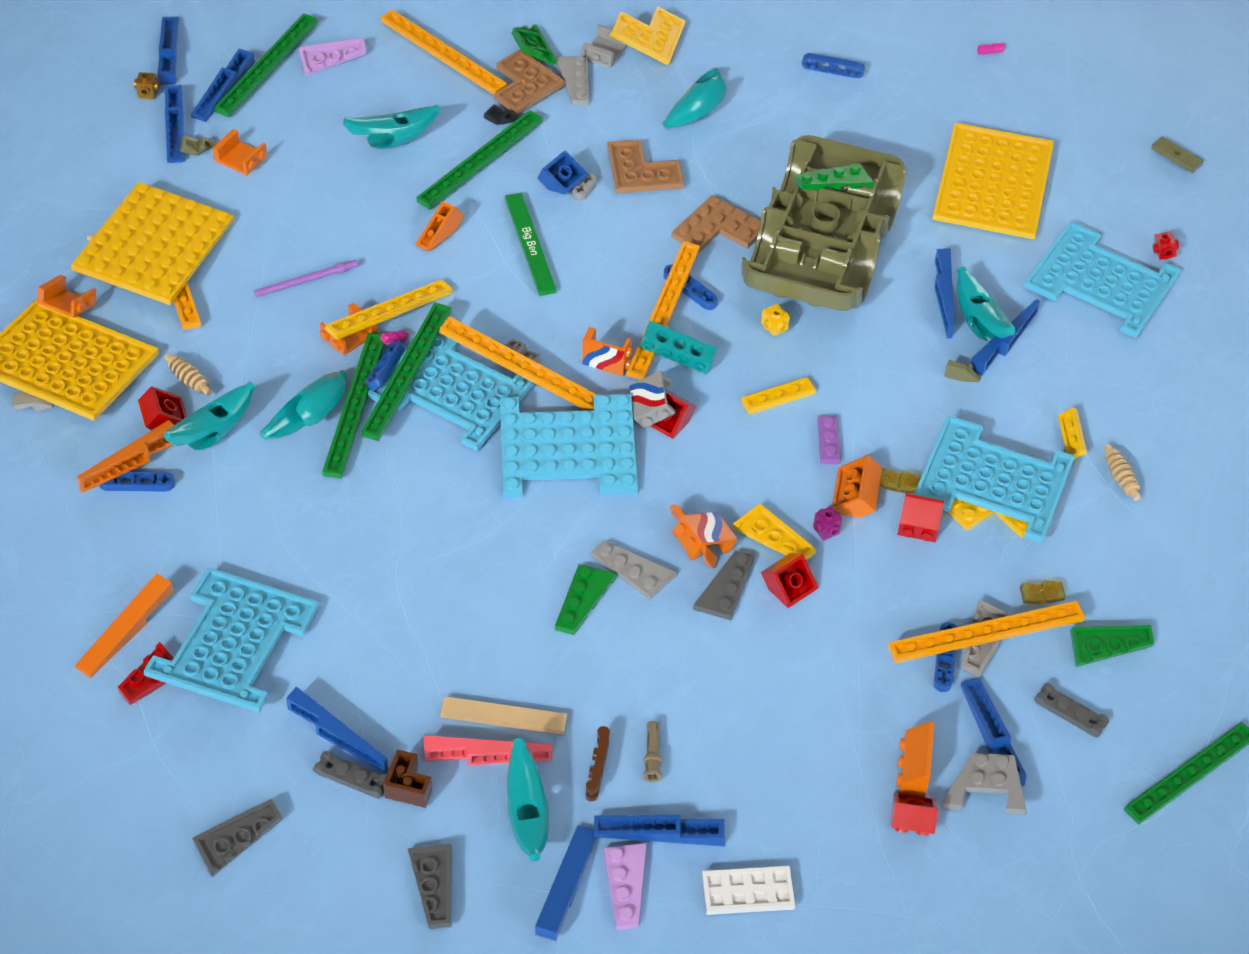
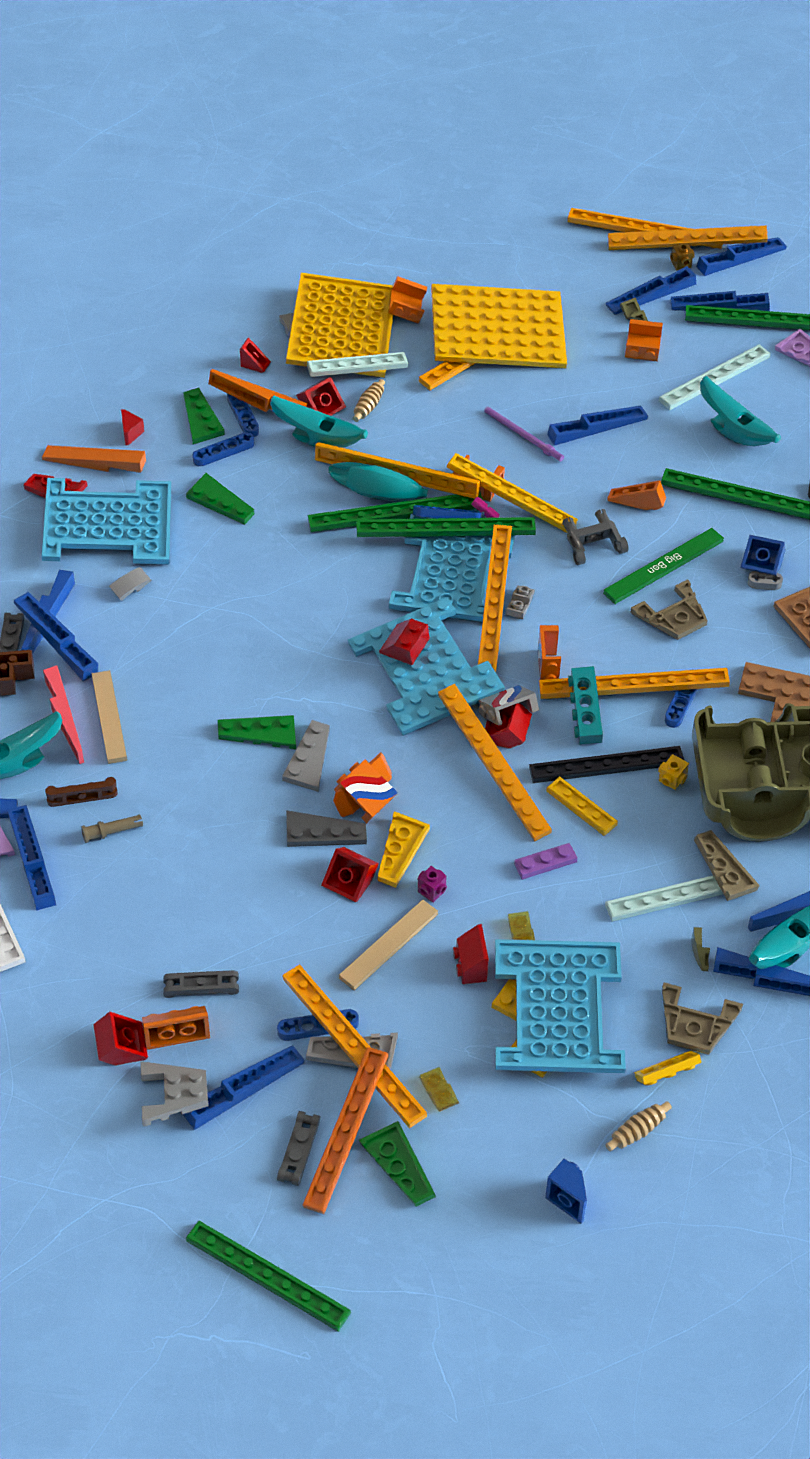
camera: 70 degrees right, 0 degrees up
(62, 446) = (252, 357): none -> red slope
(83, 96) = (619, 223): none -> light orange plate
(96, 581) = (132, 426): none -> red slope
(117, 517) = (201, 418): none -> green wing
(124, 73) = (693, 237): none -> light orange plate
(136, 364) = (357, 364): none -> light aqua tile
(177, 513) = (205, 456): none -> blue beam
(246, 540) = (218, 498): none -> green wing
(316, 126) = (717, 375): none -> light aqua tile
(326, 225) = (595, 423): none -> blue slope
(330, 363) = (423, 476): none -> light orange plate
(332, 645) = (129, 582): none -> light grey slope
(381, 724) = (57, 636): none -> blue slope
(468, 286) = (603, 530): none -> dark grey connector
(542, 444) = (406, 641): none -> red slope
(599, 253) = (678, 618): none -> dark tan wing
(708, 433) = (495, 762): none -> light orange plate
(739, 364) = (602, 764): none -> black tile
(857, 487) = (491, 898): orange slope -> none
(869, 731) = (200, 983): none -> dark grey plate
(876, 579) = (388, 944): none -> tan tile
(888, 325) = (726, 869): none -> dark tan wing
(898, 377) = (663, 898): none -> light aqua tile
(1036, 407) = (692, 1027): none -> dark tan wing
(1072, 665) = (345, 1130): none -> orange tile
(1176, 533) = (567, 1189): none -> blue slope

